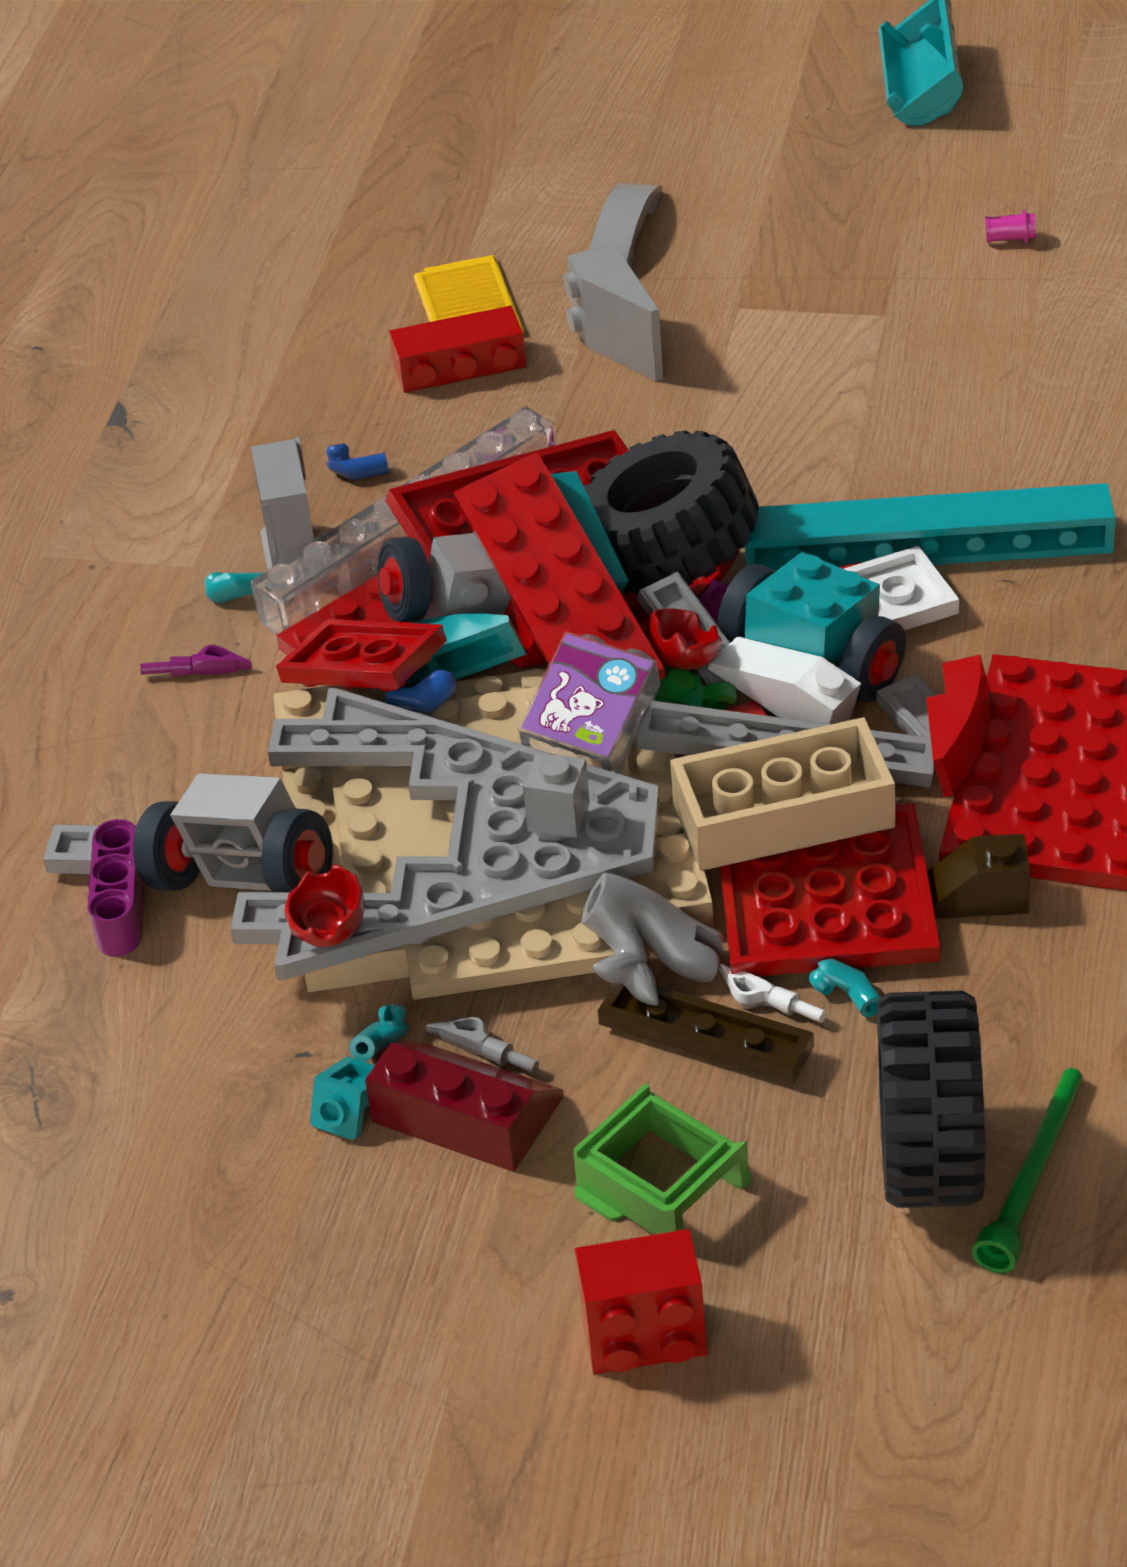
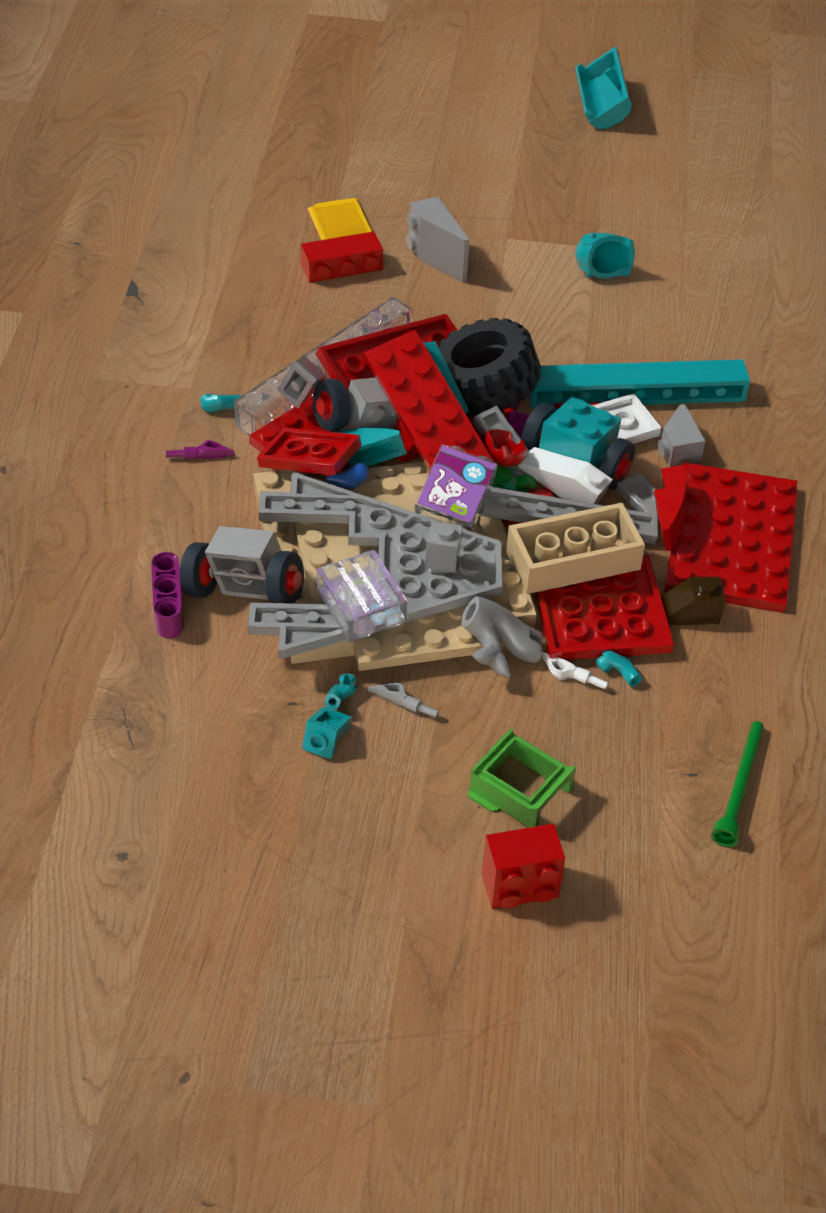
camera: 10 degrees left, 5 degrees up
(69, 849) = (136, 569): light grey plate -> none
(282, 499) = (249, 352): light grey piece -> none
(325, 907) = (309, 614): red hair -> none
(355, 468) = (283, 329): blue arm -> none
(356, 542) = (301, 381): none -> light grey slope
(415, 875) = (361, 595): none -> clear brick
(459, 1102) = (394, 737): dark red slope -> none
(624, 216) = (434, 177): light grey slope -> none
(710, 1031) = (541, 694): dark brown plate -> none
(893, 326) = (605, 255): none -> teal helmet
(931, 1099) = (688, 743): black tyre -> none
(990, 616) = (681, 439): none -> light grey slope
(1010, 227) = (665, 196): dark pink pin -> none

